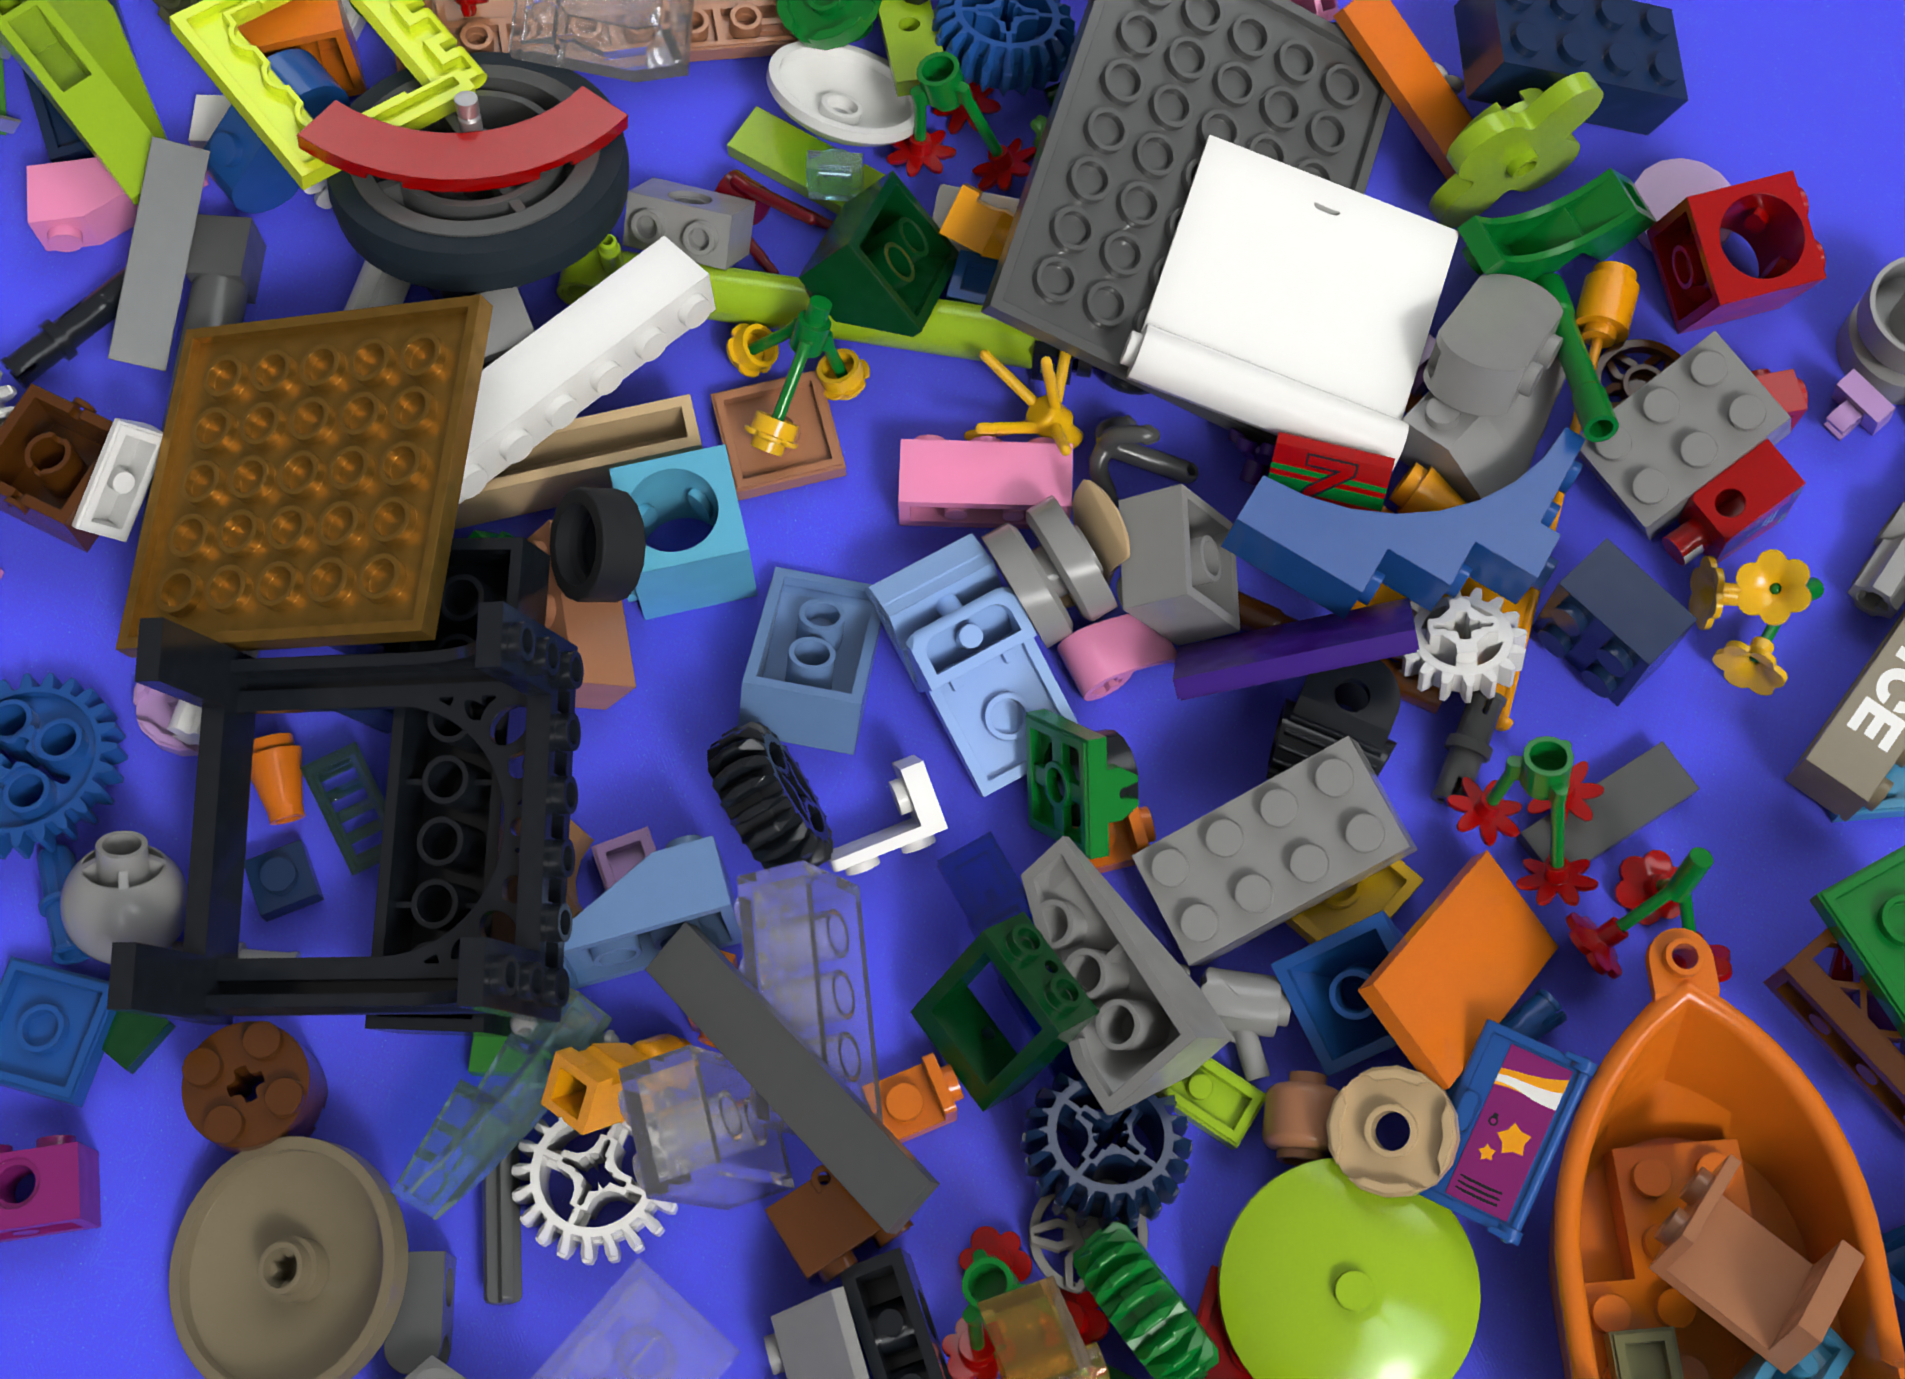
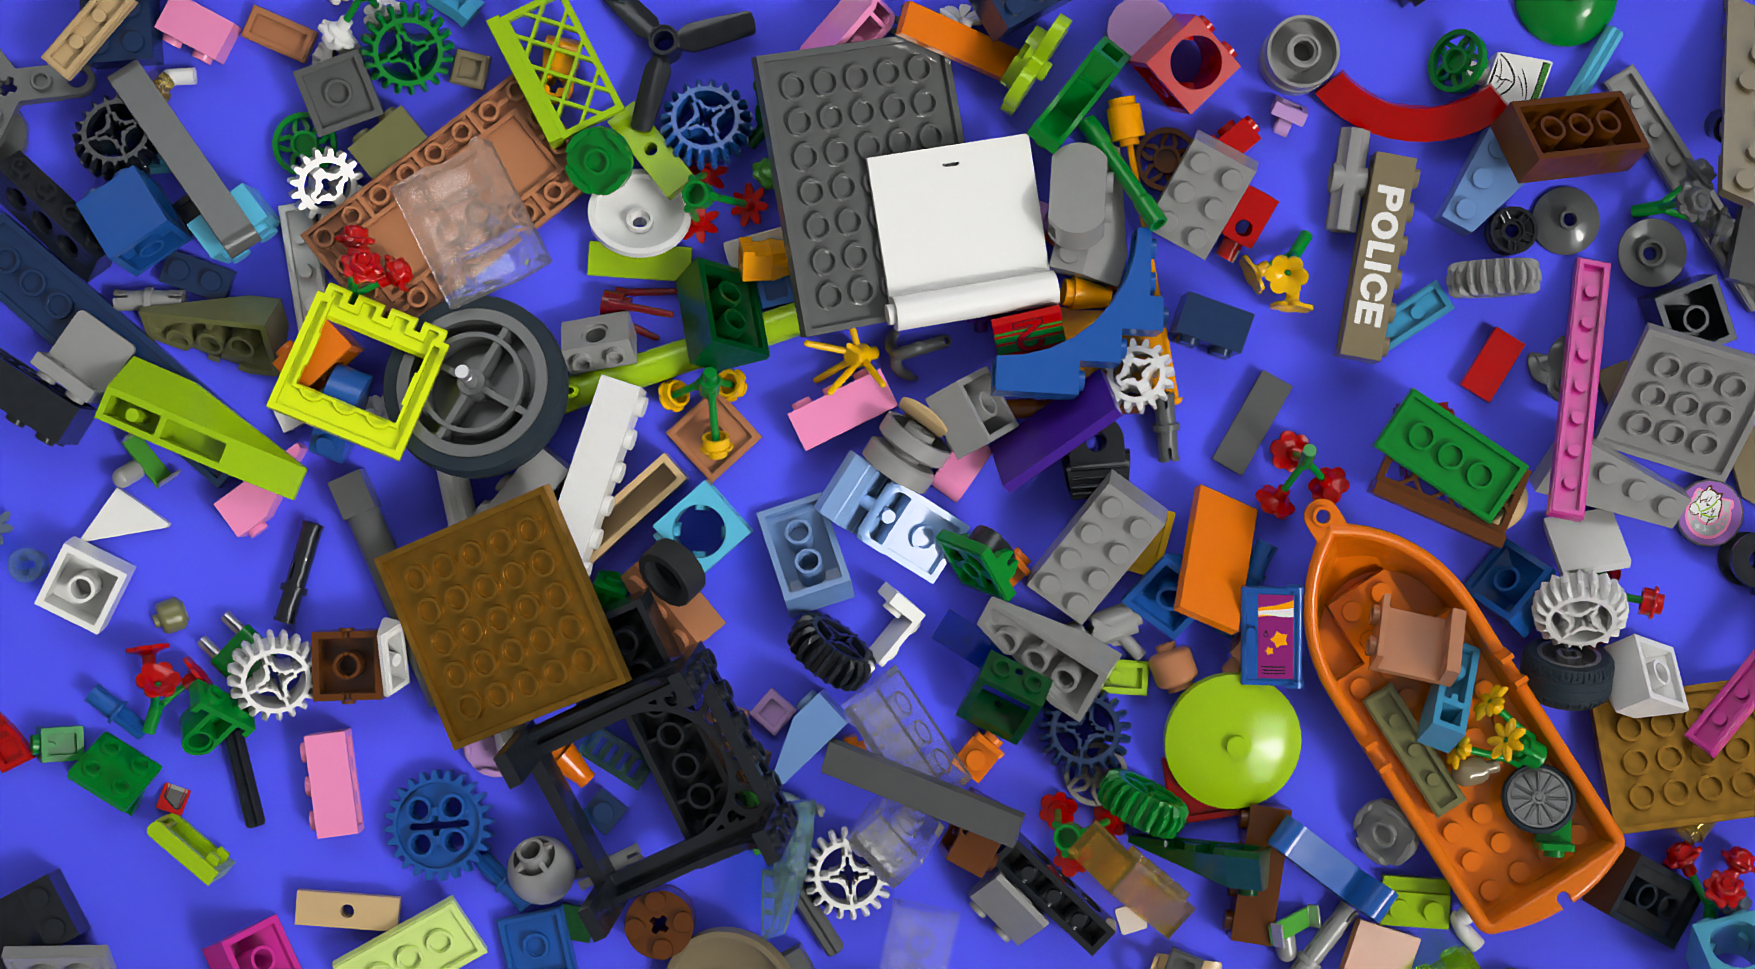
camera: 30 degrees left, 20 degrees up
(158, 254) = (324, 518): tile -> none
(468, 159) = (479, 399): tile -> none
(587, 1083) = (827, 841): light orange piece -> none
(834, 174) = (662, 269): clear light blue plate -> none
(1431, 1141) = (1227, 646): tan tile -> none
(1551, 780) = (1214, 443): plant -> none

